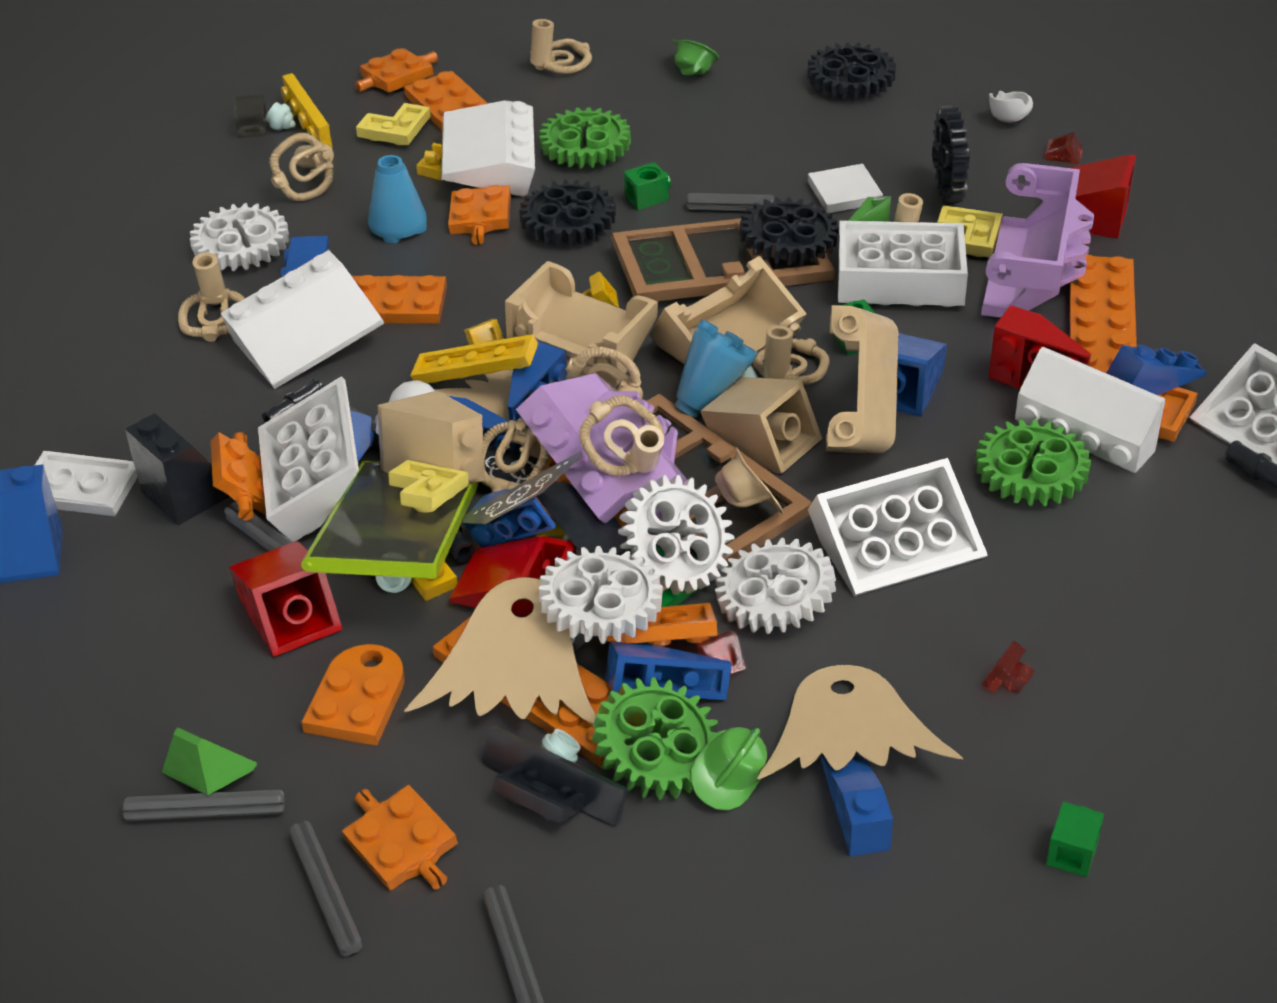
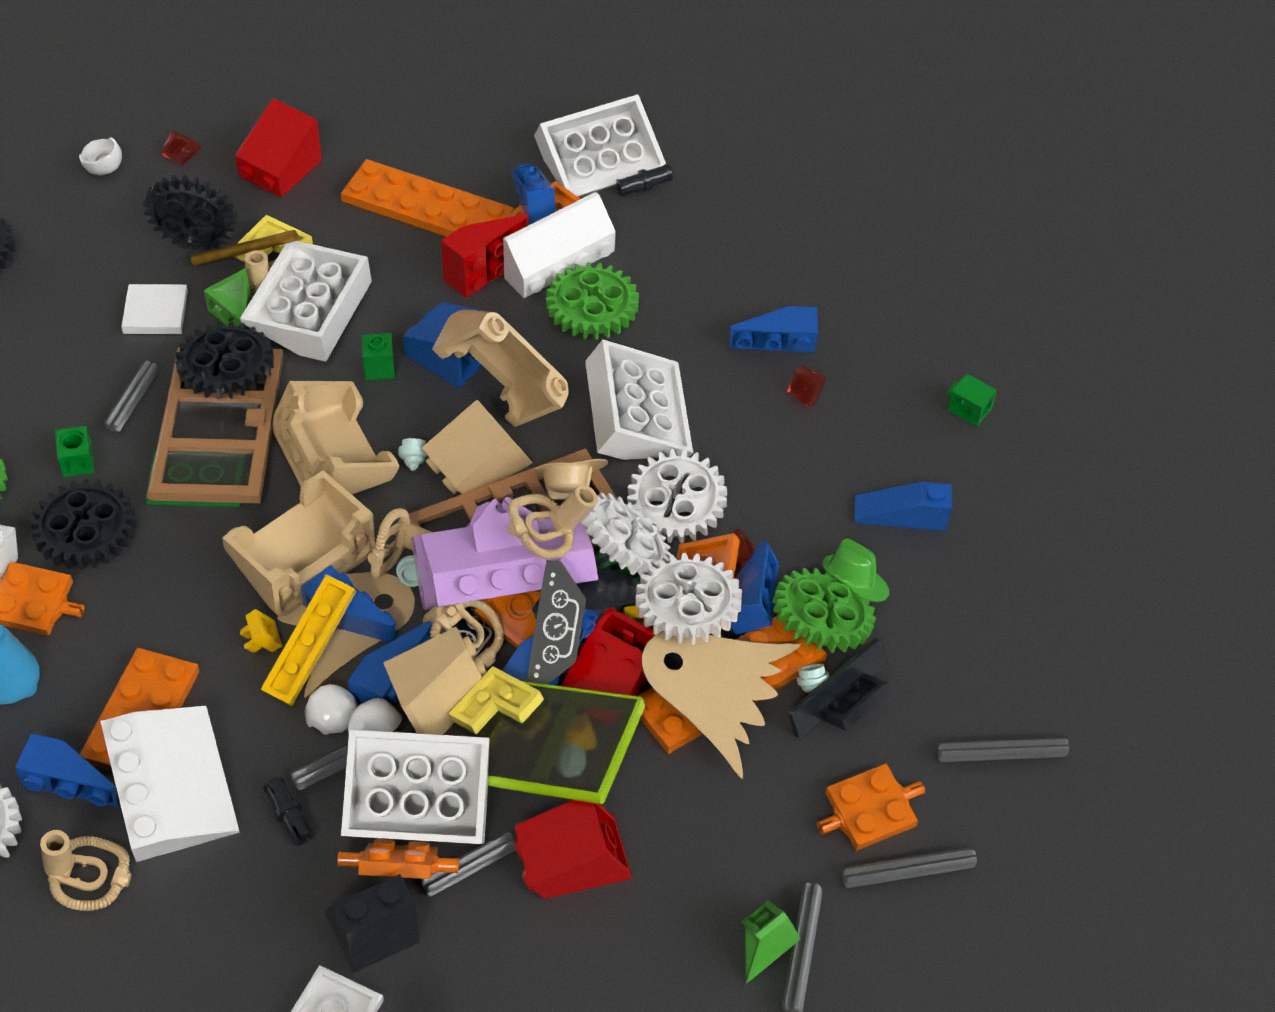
camera: 80 degrees left, 10 degrees up
(354, 698) = (703, 816): orange plate -> none
(602, 290) = (229, 522): yellow tile -> none
(711, 367) = (416, 460): dark azure cone -> none
(778, 357) = (406, 409): tan piece -> none
(841, 724) = (832, 490): tan piece -> none
(943, 207) = (245, 247): none -> pearl gold bar
(1040, 251) = (345, 201): lavender piece -> none
(1088, 631) = (781, 330): none -> blue slope

